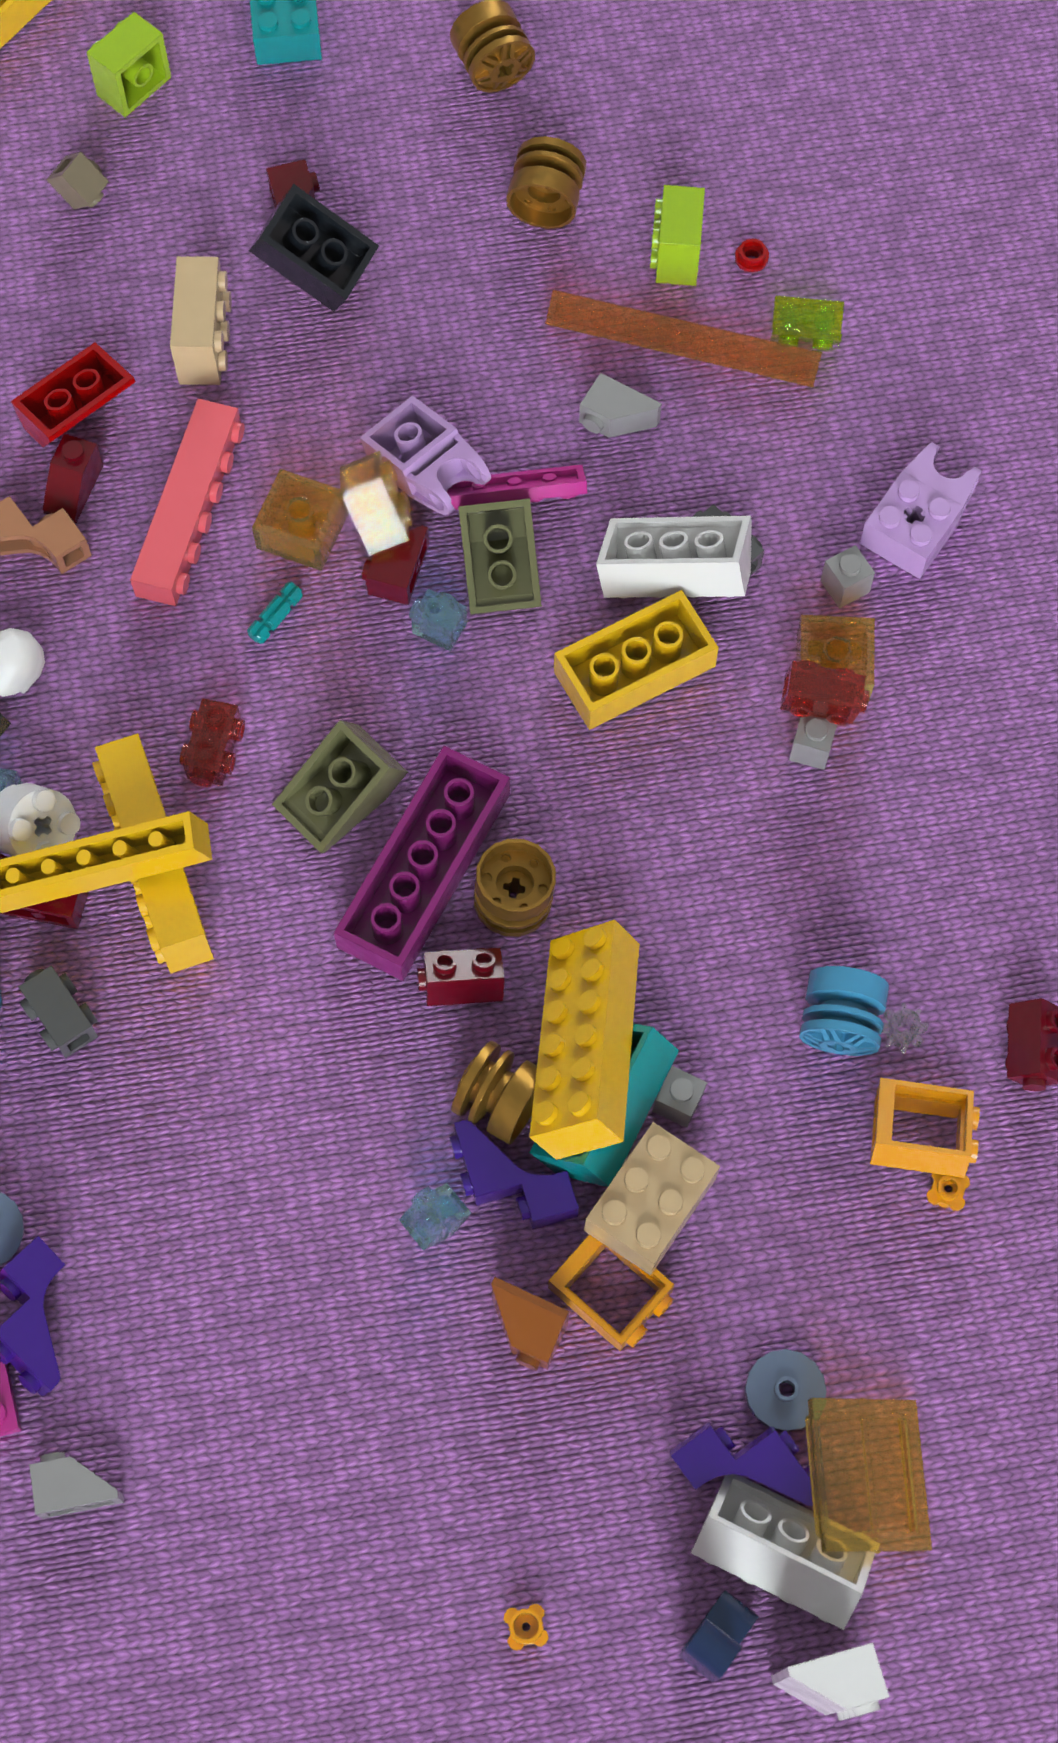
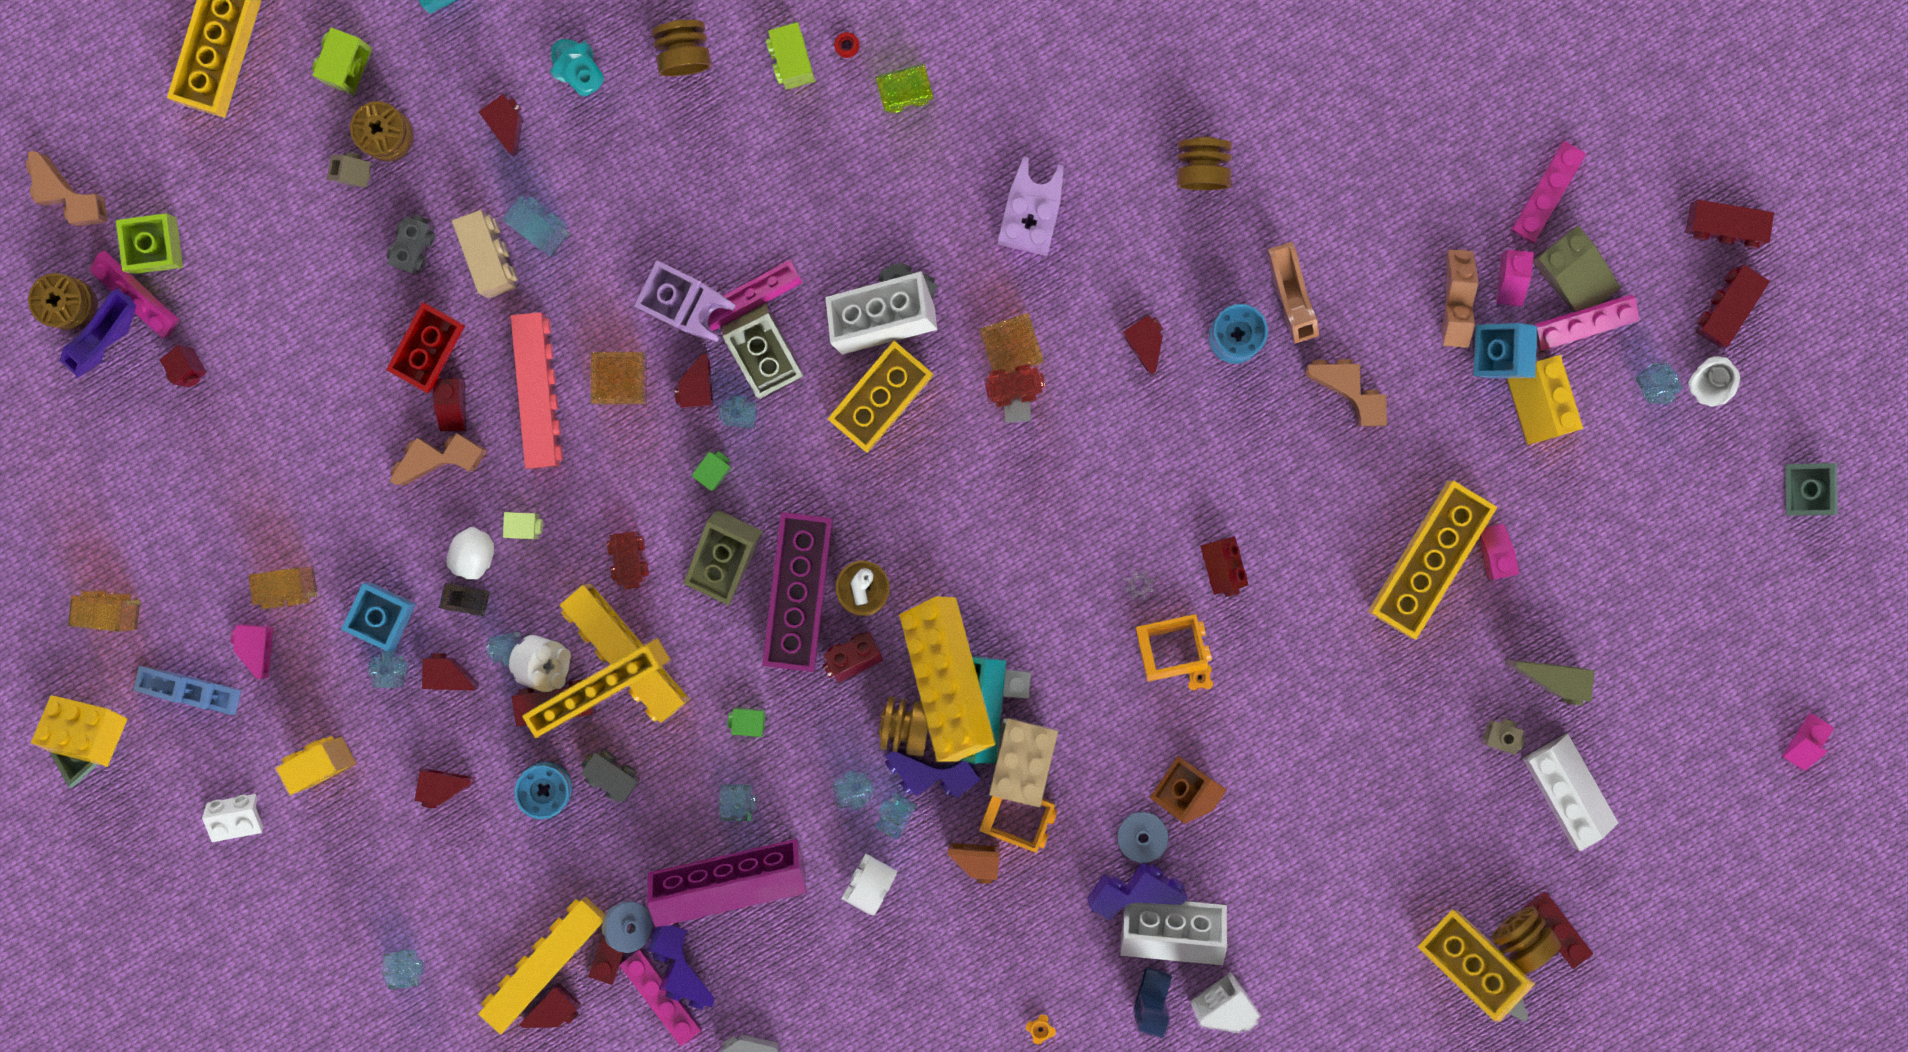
camera: 20 degrees left, 20 degrees up
(92, 653) = (522, 525): none -> yellowish green brick
(112, 287) = (411, 244): none -> dark grey brick
(139, 152) = (392, 141): none -> pearl gold wheel
(151, 1216) = (726, 883): none -> magenta brick
(216, 1113) = (737, 802): none -> clear light blue brick
(275, 612) = (628, 448): teal axle -> none
(278, 310) = (540, 229): none -> clear light blue brick
(280, 1011) = (747, 721): none -> bright green brick
(314, 248) = (540, 168): black brick -> none
(357, 1298) = (869, 884): none -> white brick
(373, 674) = (712, 470): none -> bright green brick
(375, 502) = (665, 354): clear yellow brick -> none
(387, 1157) = (845, 793): none -> clear light blue brick
(408, 166) = (575, 65): none -> teal head
(513, 870) = (859, 585): none -> white arm
(617, 409) = (797, 208): light grey slope -> none
(683, 338) = (823, 133): clear orange plate -> none
(844, 1010) = (1099, 593): dark azure wheel -> none
(847, 576) = (999, 279): light grey brick -> none
(867, 1475) = (1207, 872): clear yellow piece -> none
(879, 1343) = (1187, 791): none -> dark orange slope
(1017, 717) = (1145, 341): none -> dark red slope

